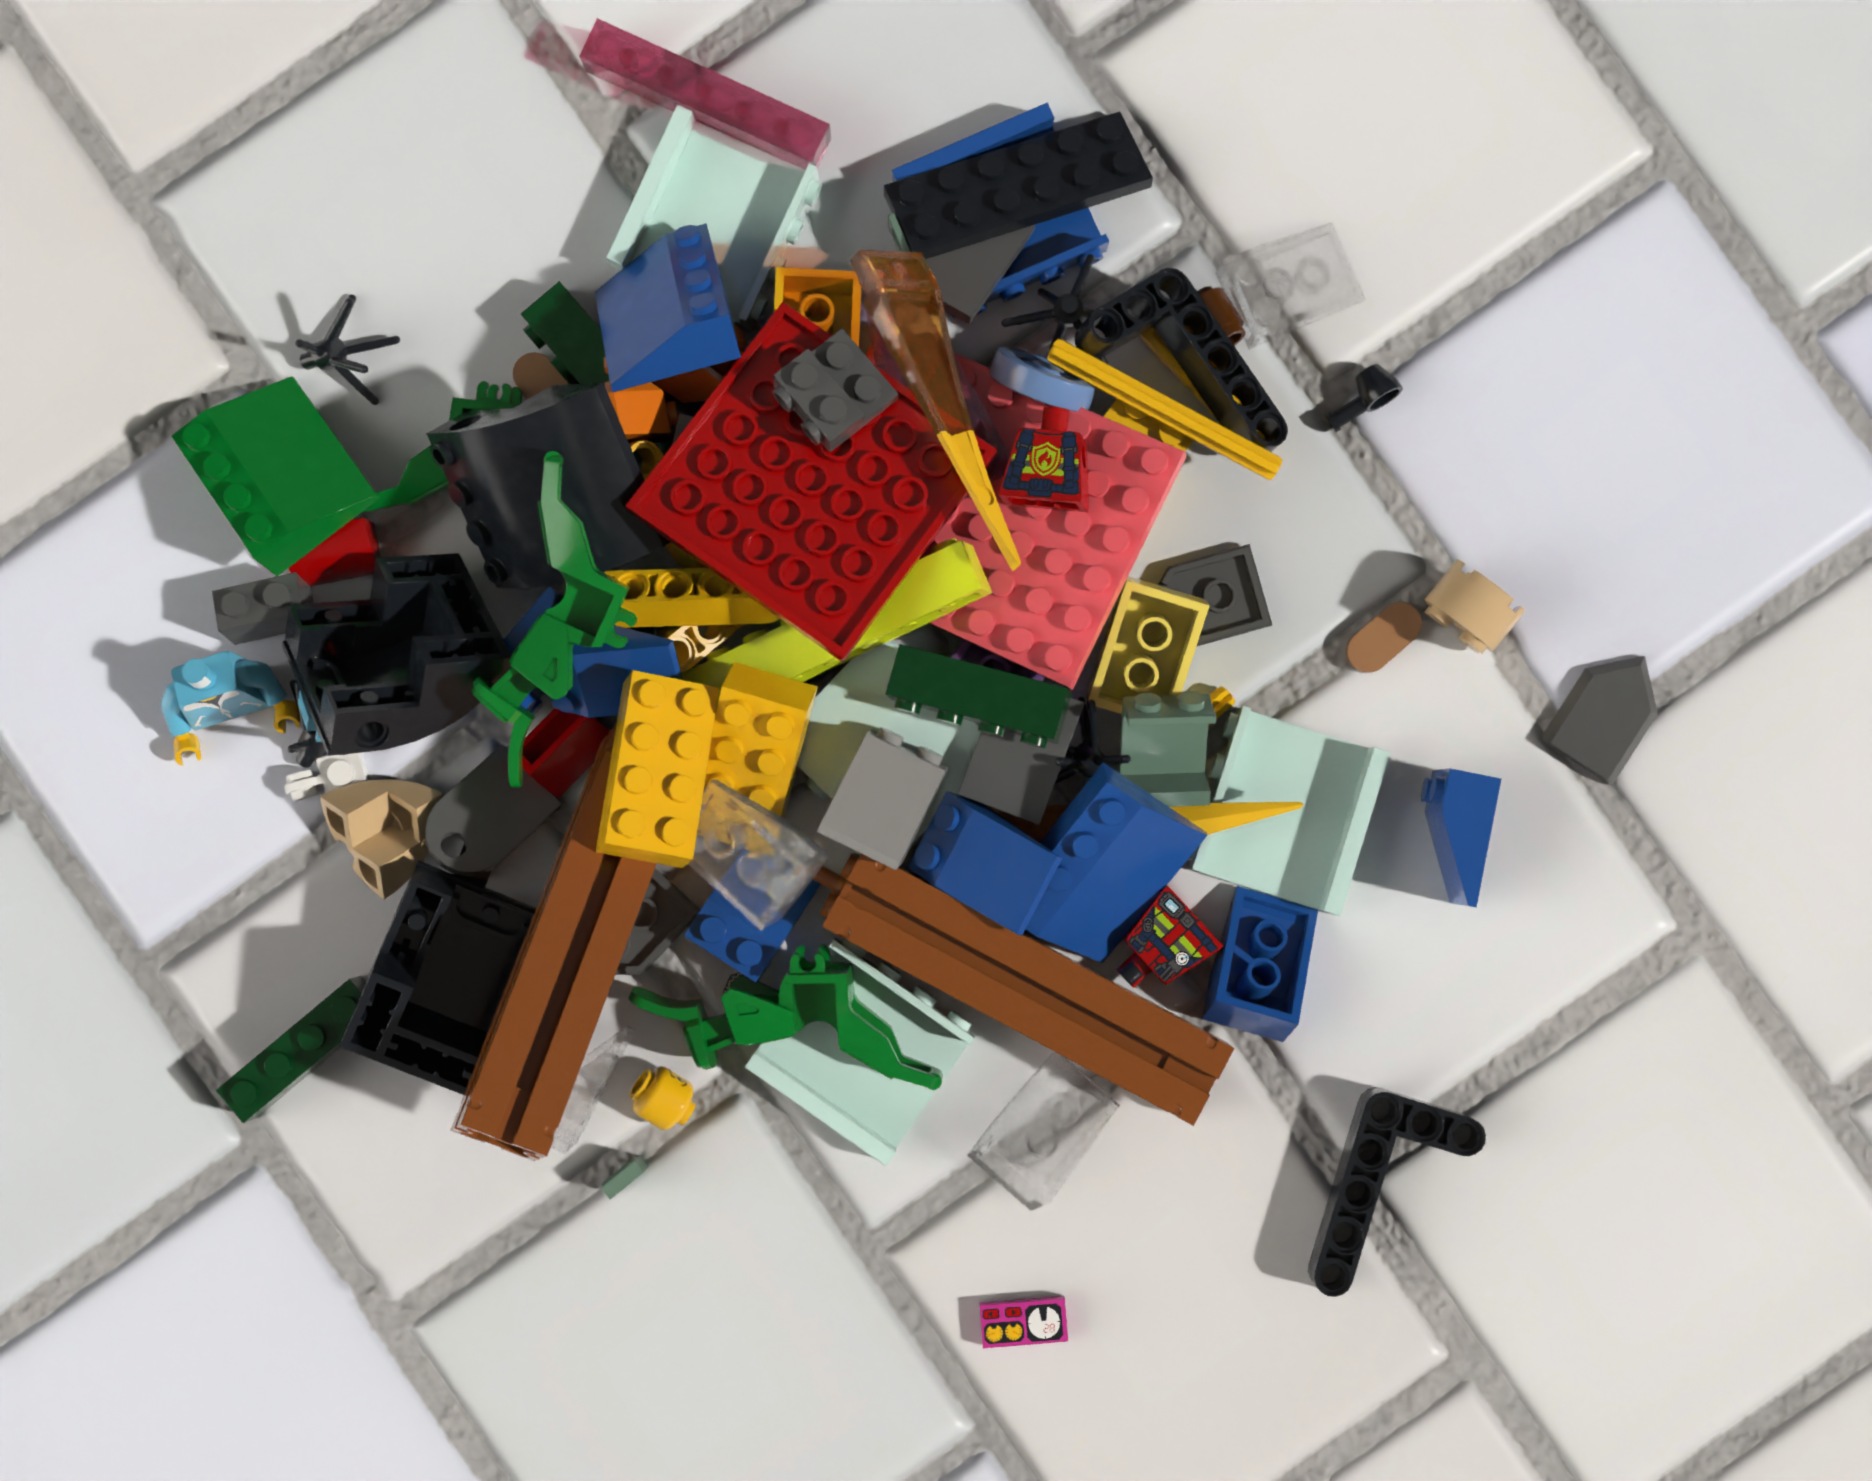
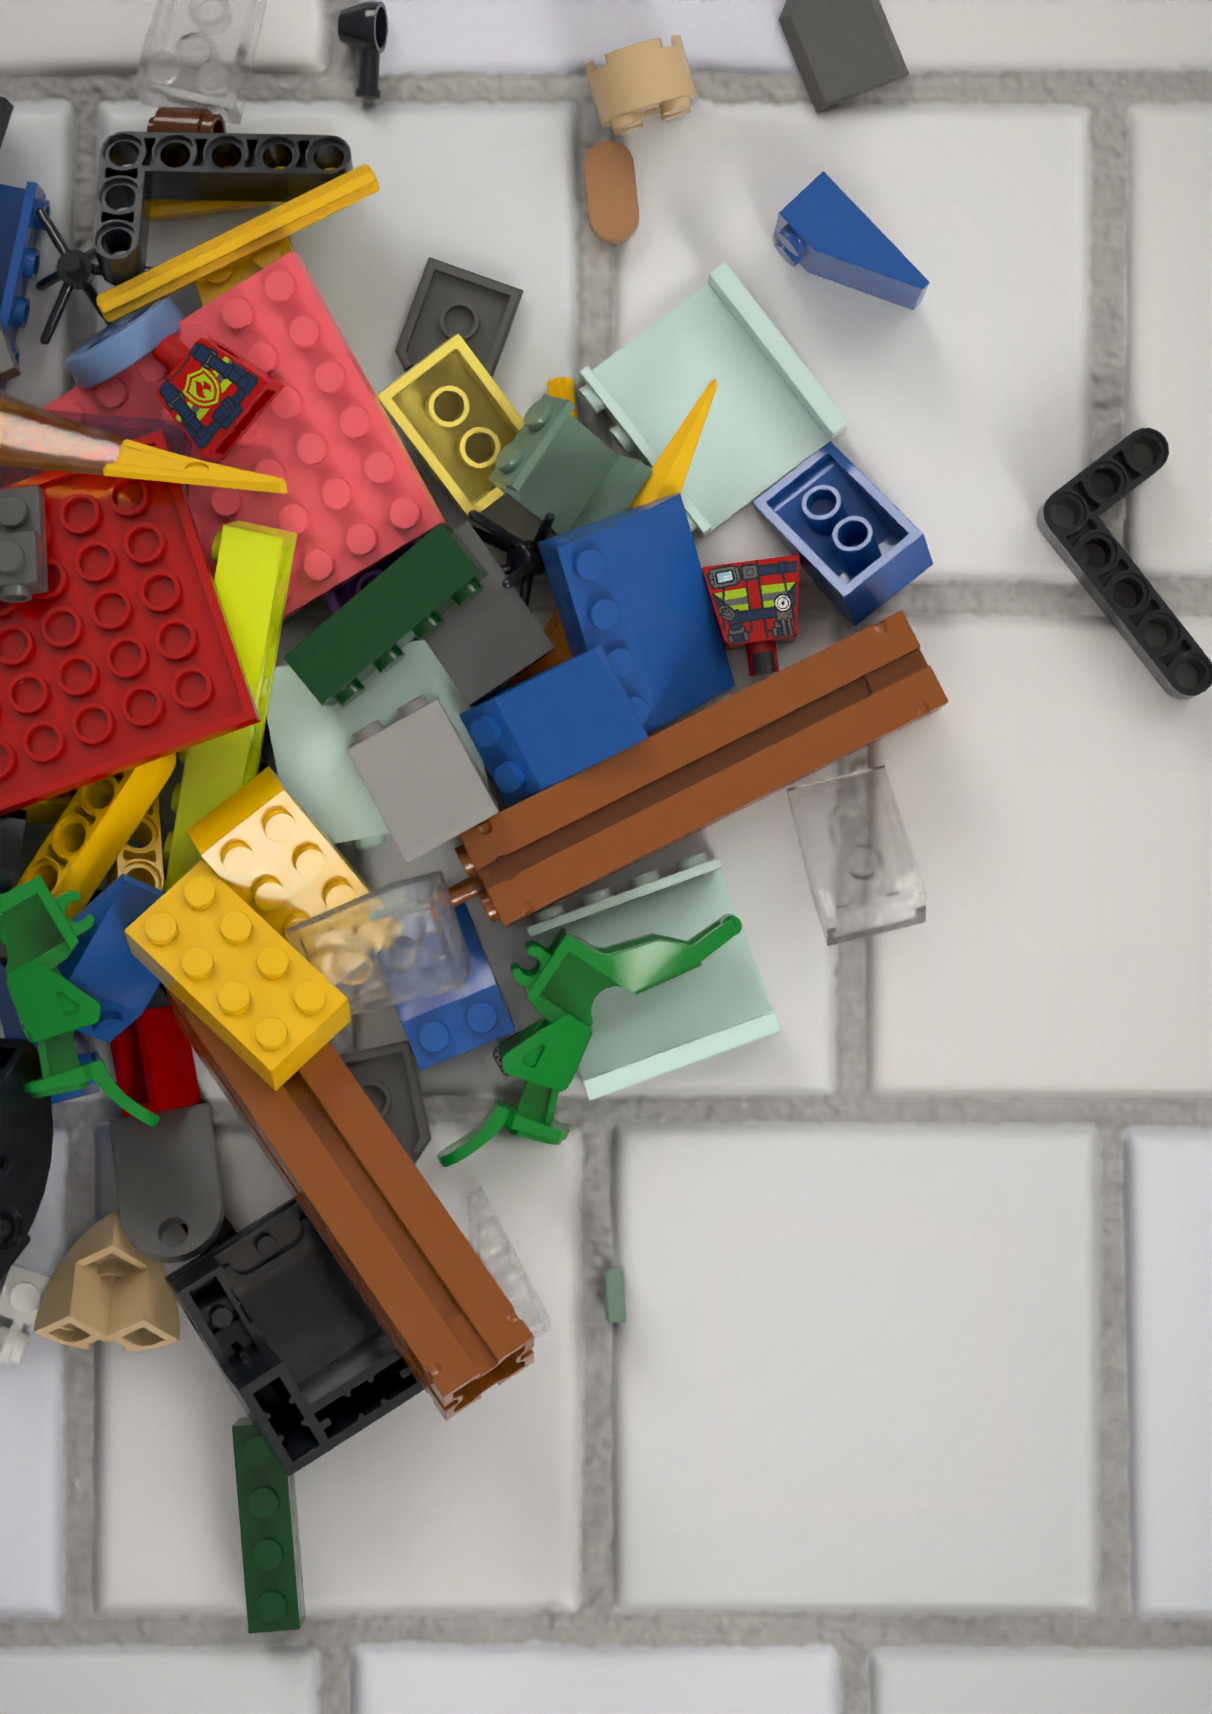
camera: 55 degrees left, 0 degrees up
(662, 1098) = (564, 1203): yellow head -> none
(1023, 1321) = (1027, 1005): tile -> none

